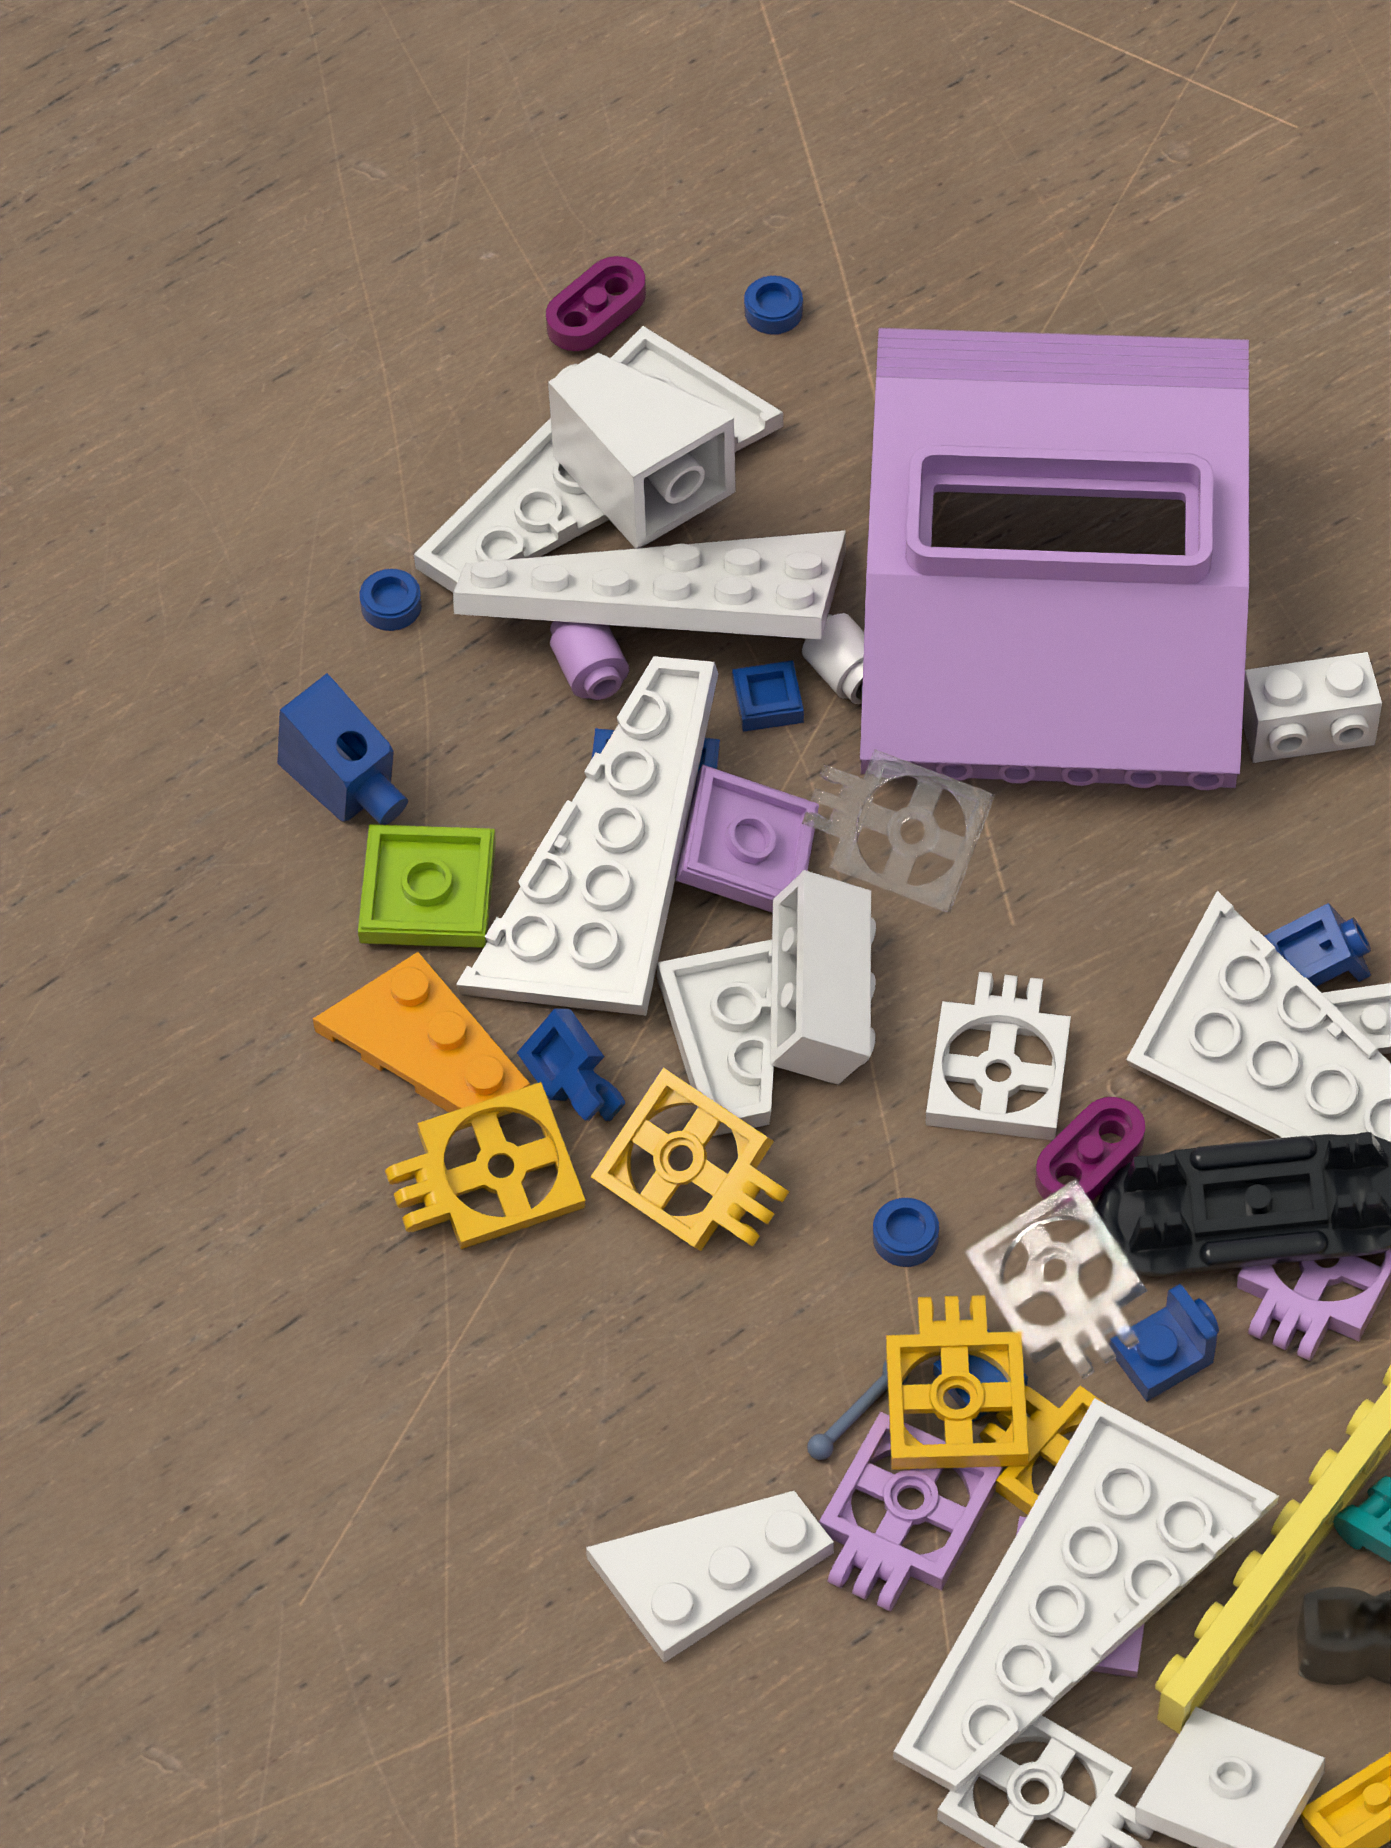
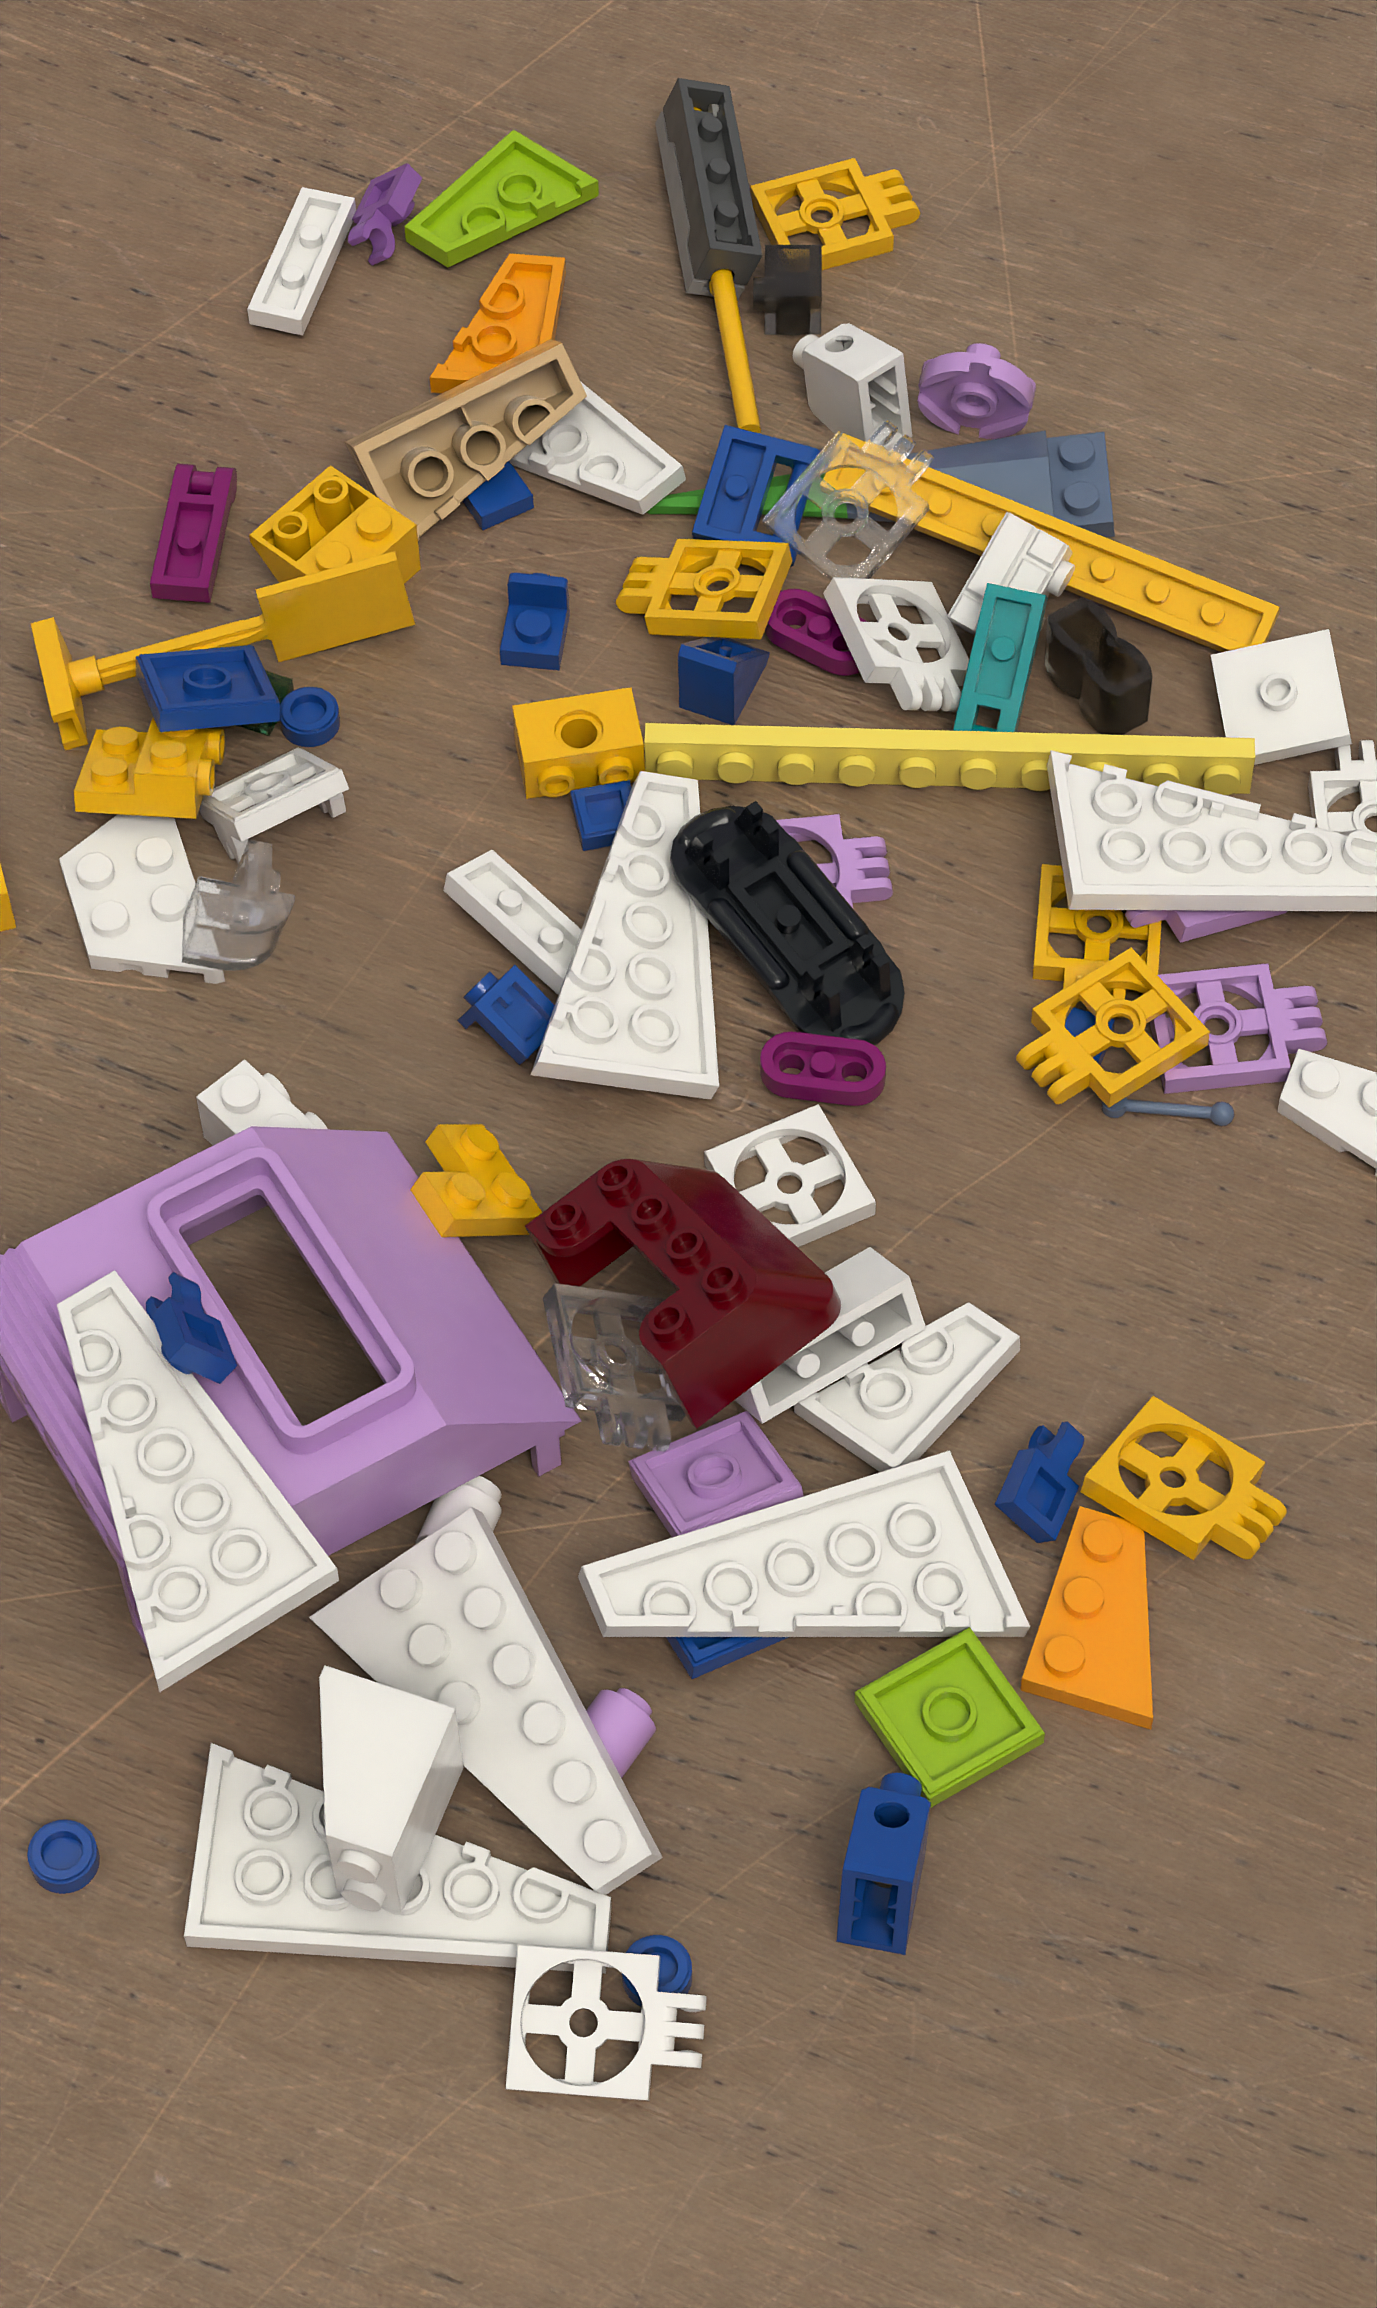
camera: 125 degrees left, 0 degrees up
(343, 569) = (653, 2027): none -> white piece
(591, 306) = (179, 2006): magenta plate -> none
(731, 1192) = (1073, 1287): yellow piece -> none
(768, 696) = (544, 1574): blue tile -> none
(905, 1232) = (989, 1163): blue tile -> none
(922, 894) = (740, 1283): none -> dark red windscreen
(925, 366) = (193, 1509): none -> white wing
(1047, 409) = (188, 1335): none -> blue plate
(1086, 1319) = (981, 982): clear piece -> none
(1133, 831) = (477, 1188): none -> yellow plate
(1171, 1345) = (949, 933): blue bracket -> none

